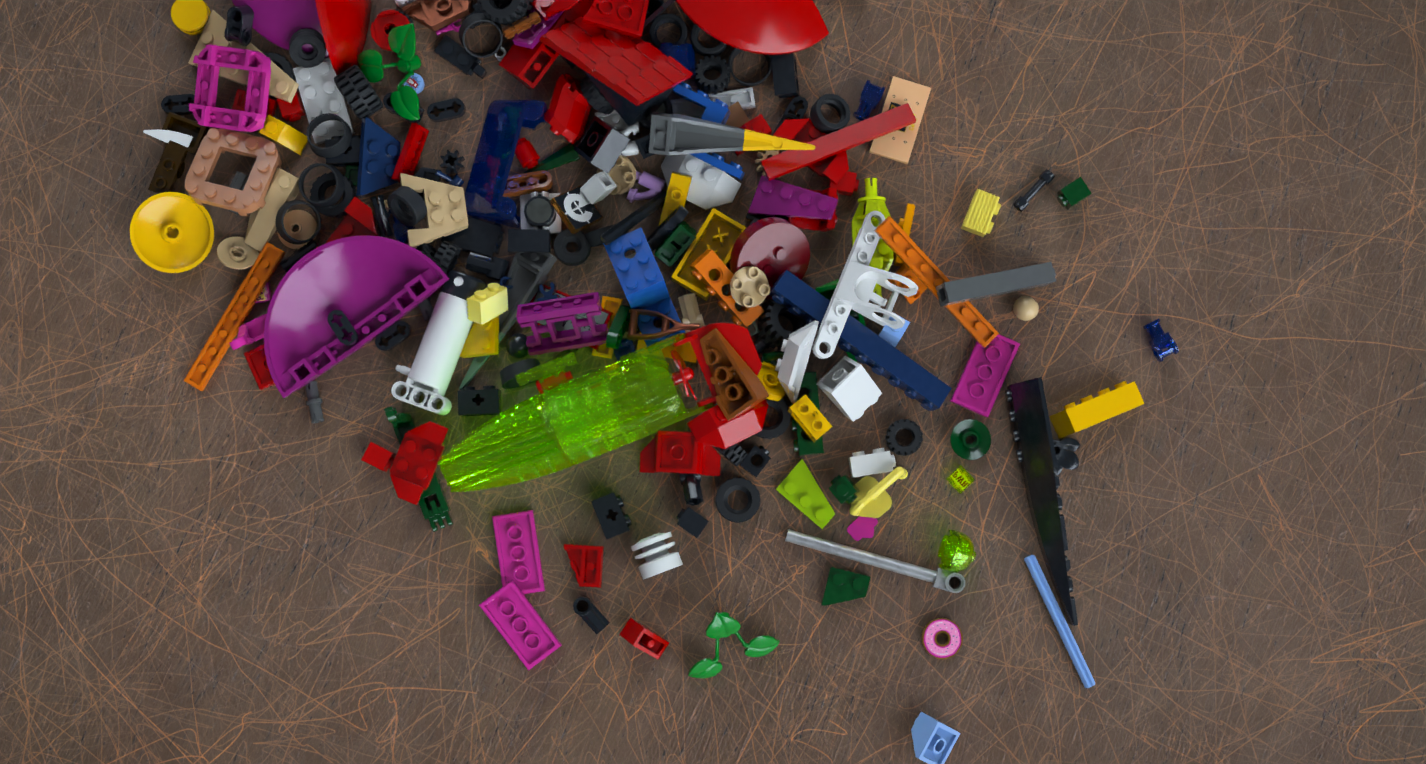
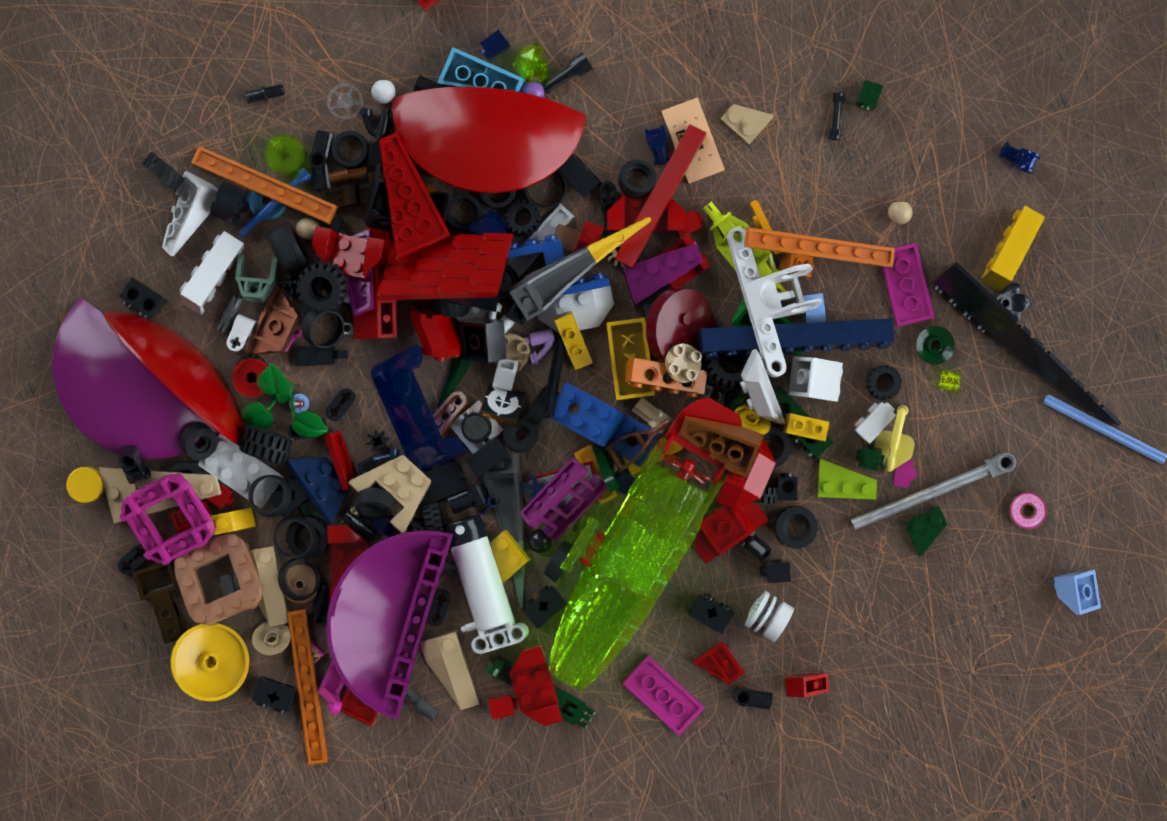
camera: 40 degrees left, 5 degrees up
(166, 136) = (146, 591): white sticker -> none
(212, 307) = (284, 691): none -> black brick
(339, 330) = (396, 636): black beam -> none
(363, 392) = (449, 664): none -> tan wedge
(487, 303) = (494, 528): light yellow brick -> none
(520, 624) = (707, 746): dark pink tile -> none
(521, 25) = (351, 297): dark orange axle -> none
(526, 153) = (431, 390): red brick -> none
(667, 227) = (582, 364): black beam -> none
(675, 243) = (598, 370): dark green brick -> none
(724, 626) = (862, 630): green plant -> none
(955, 138) = (746, 122): none -> tan wing
(956, 552) = (989, 438): clear neon green cylinder -> none
(980, 213) = (810, 165): light yellow brick -> none
(995, 283) = (865, 213): dark grey brick -> none

